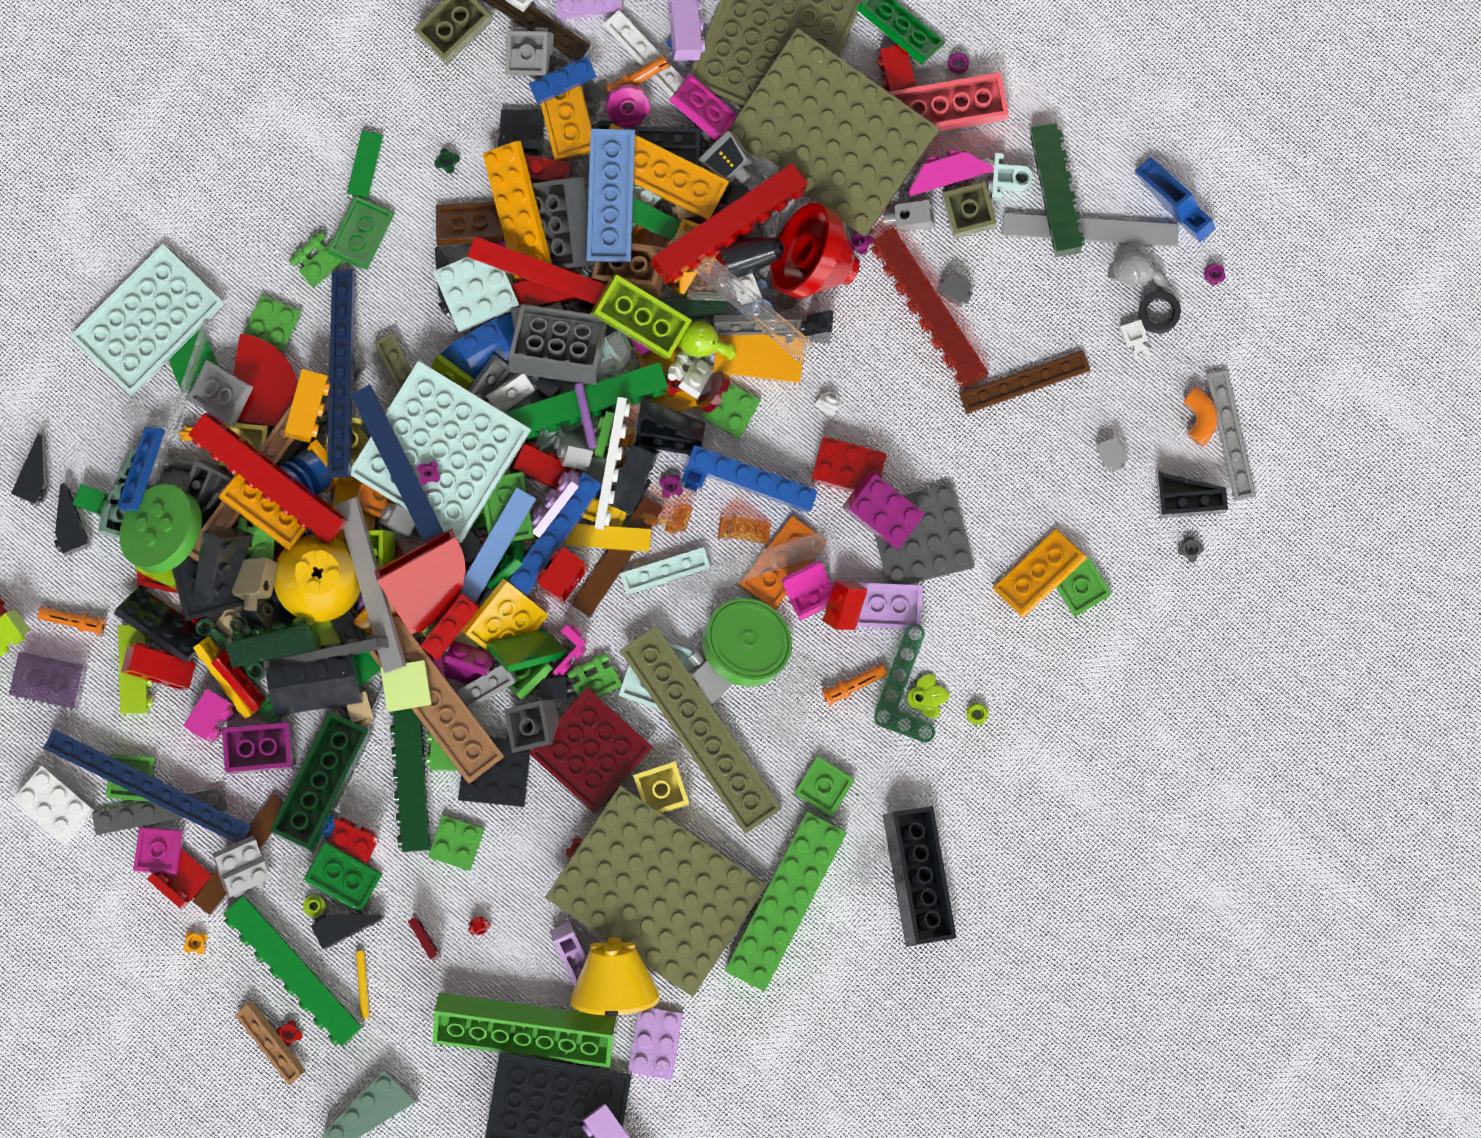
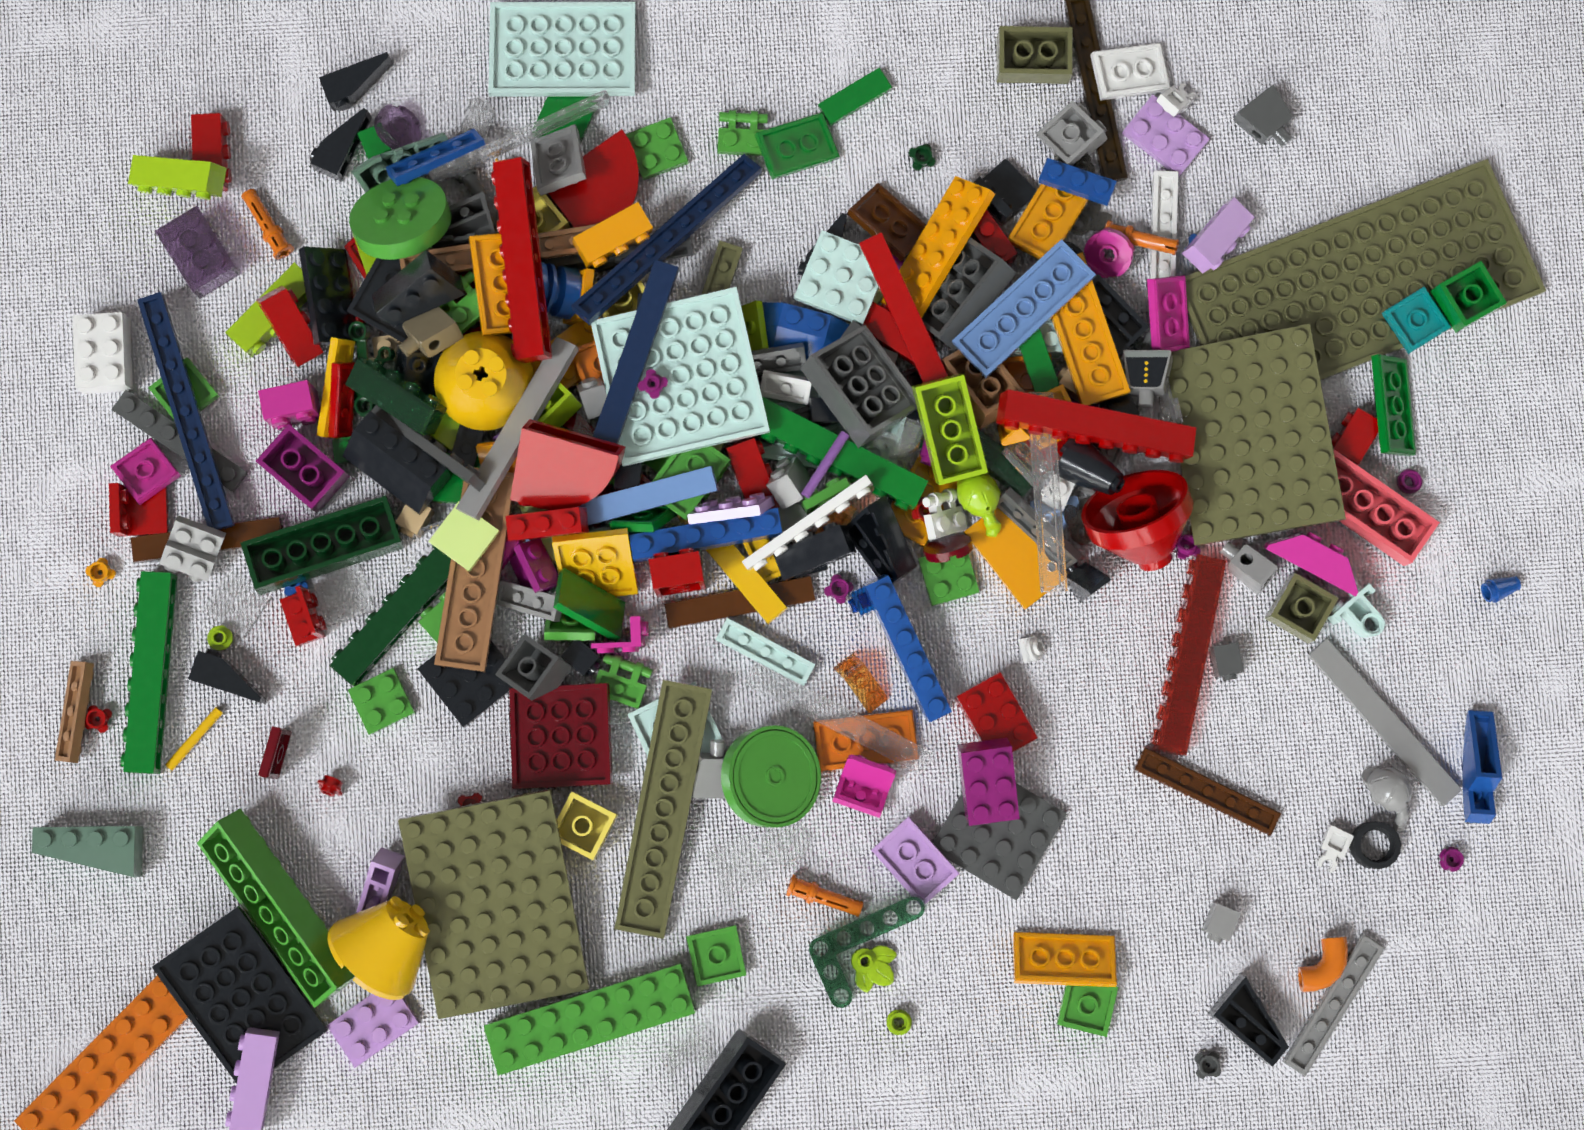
camera: 35 degrees right, 0 degrees up
(94, 474) = (397, 126): none -> clear purple tile
(342, 877) = (263, 637): green tile -> none
(680, 519) = (821, 620): clear orange bracket -> none
(845, 605) = (880, 826): red brick -> none
(1056, 190) = (1389, 662): dark green brick -> none
(1079, 75) = (1499, 588): none -> blue cone

